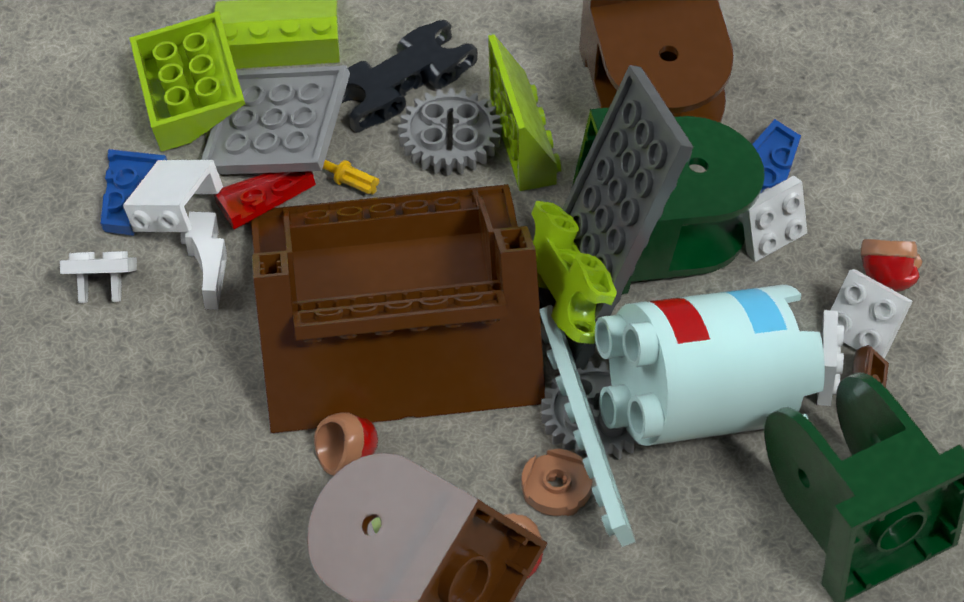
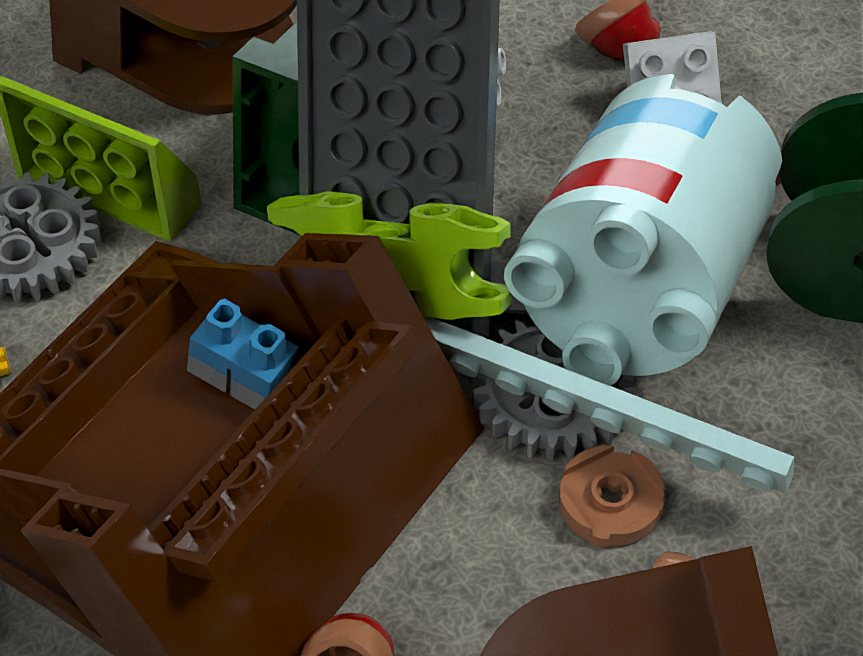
camera: 50 degrees left, 0 degrees up
(454, 257) = (240, 354): none -> dark azure hips

